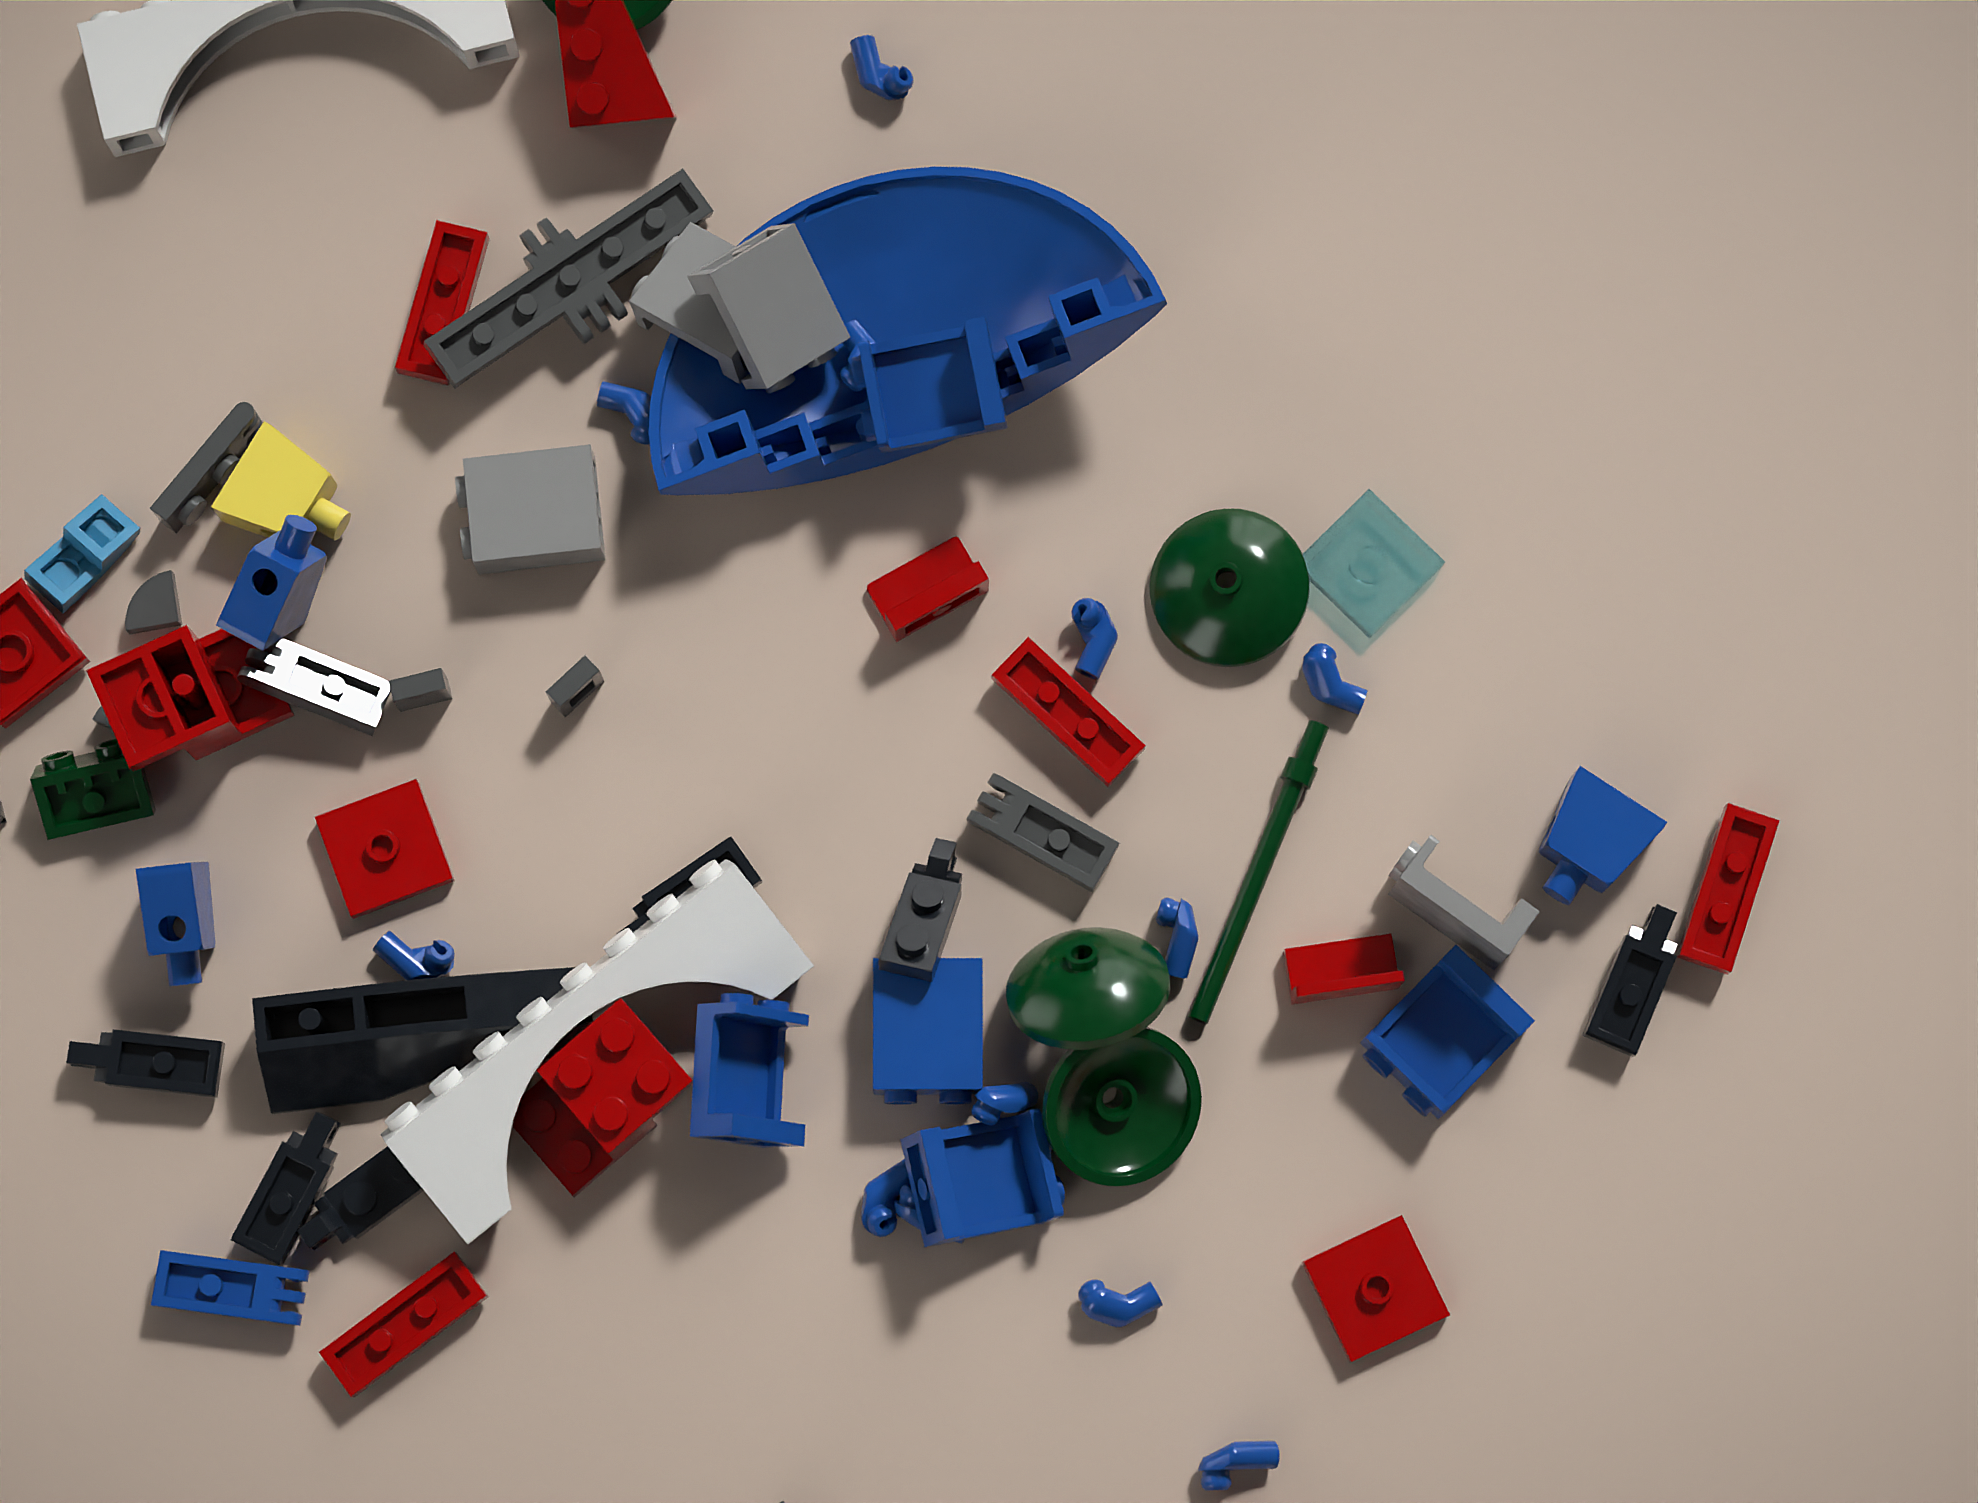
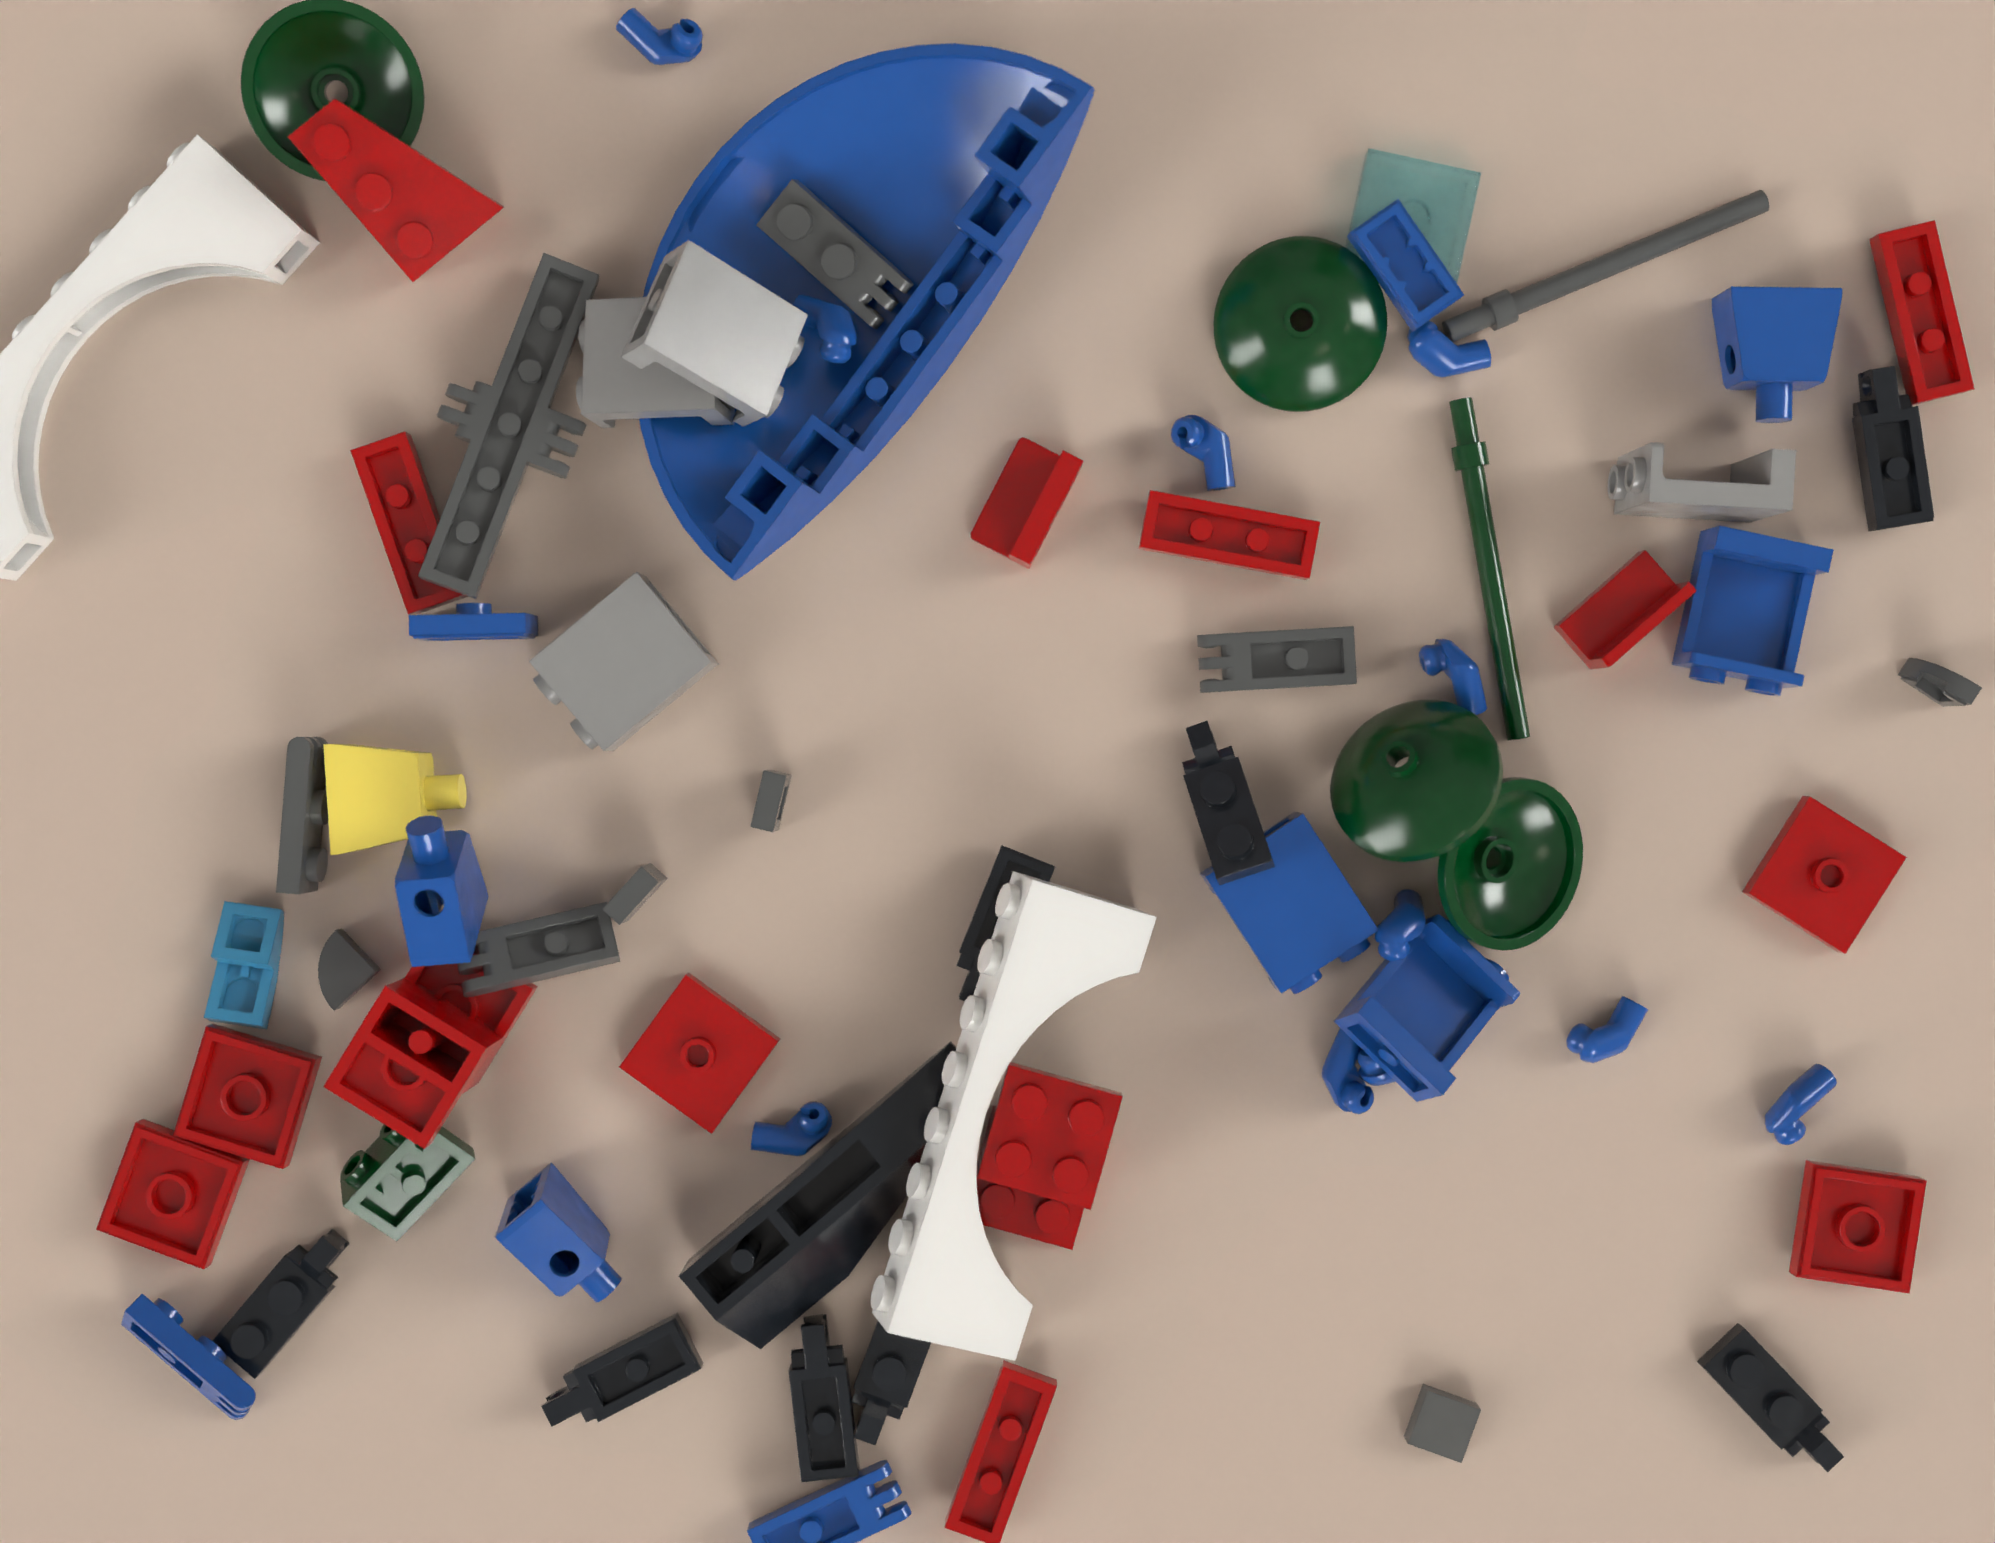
camera: 30 degrees left, 10 degrees up
(439, 407) = (473, 622): none -> blue plate
(630, 401) = (647, 504): blue arm -> none
(742, 1072) = (1157, 1057): blue panel -> none
(897, 287) = (833, 252): none -> dark grey hinge
(930, 387) = (916, 313): blue panel -> none
(1336, 591) = (1405, 265): none -> blue plate
(1396, 675) = (1505, 307): none -> dark grey bar
(1561, 1189) = (1939, 683): none -> dark grey tile

